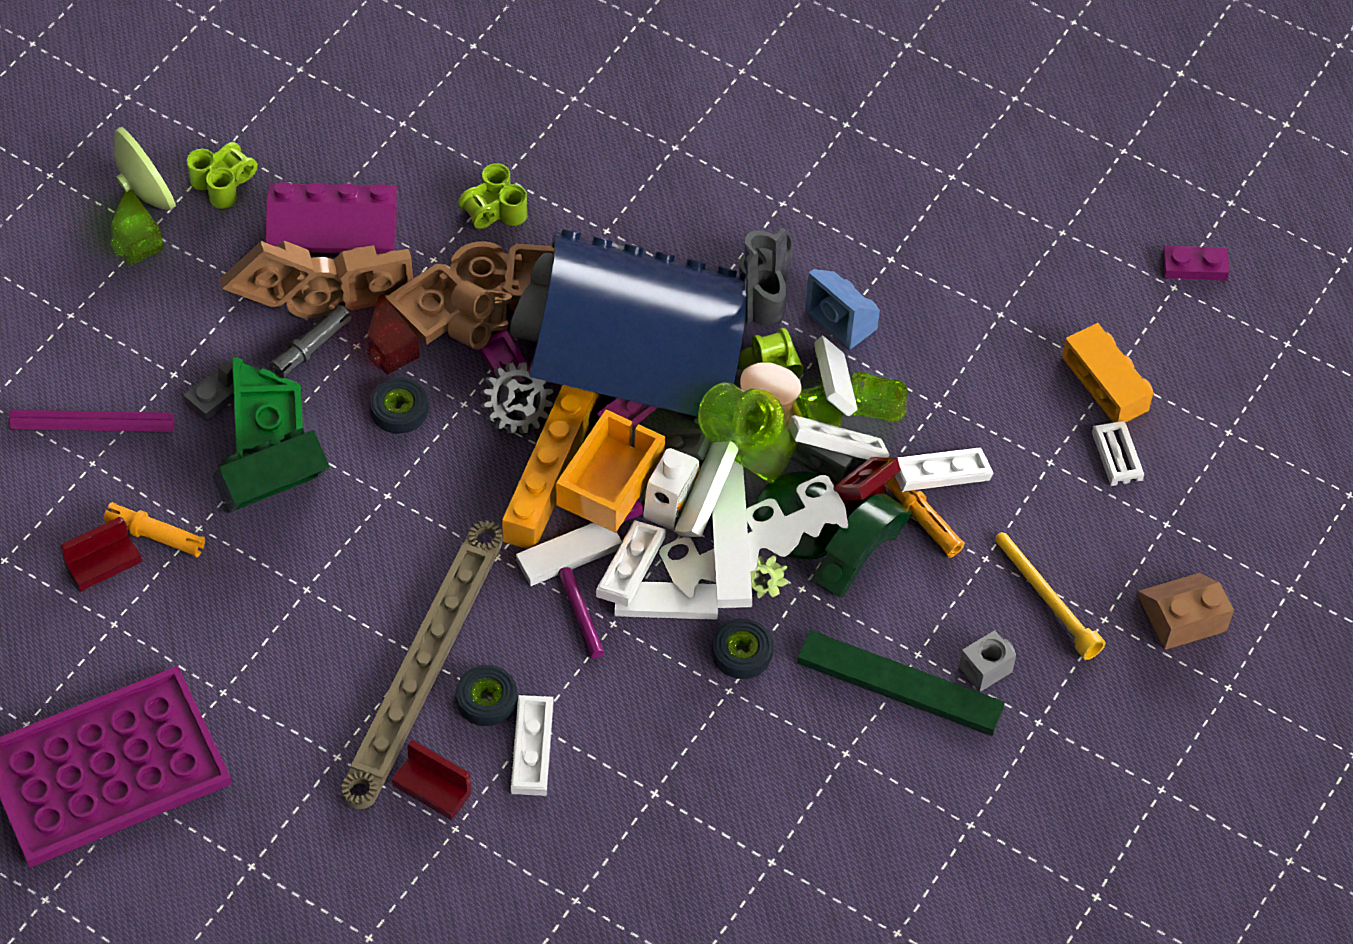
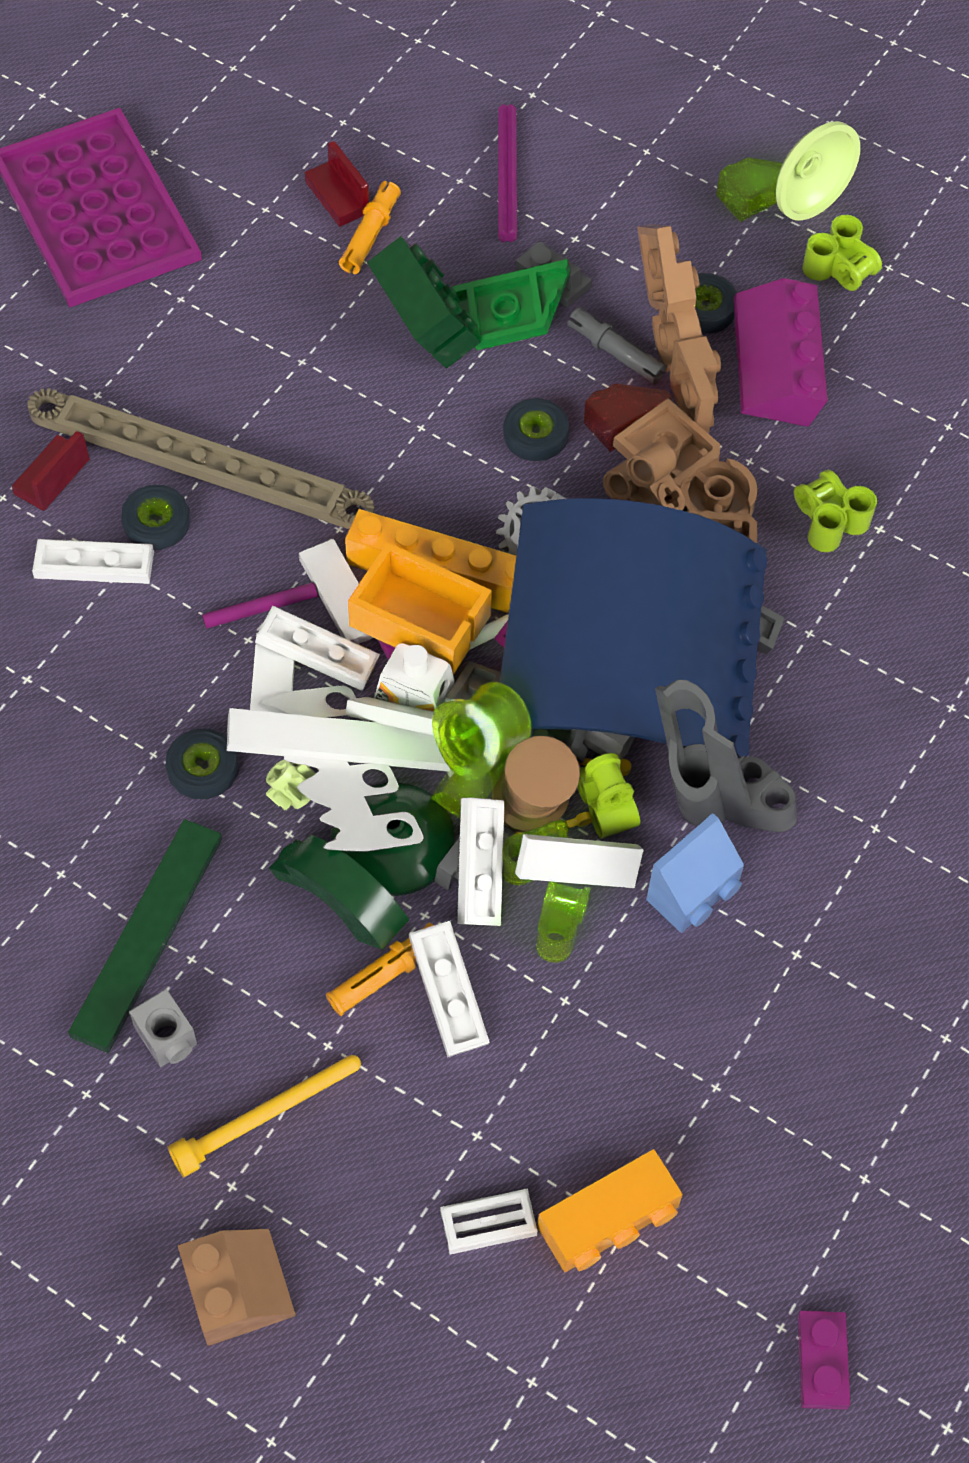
camera: 90 degrees right, 5 degrees up
(866, 482) = (411, 886): dark red panel -> none

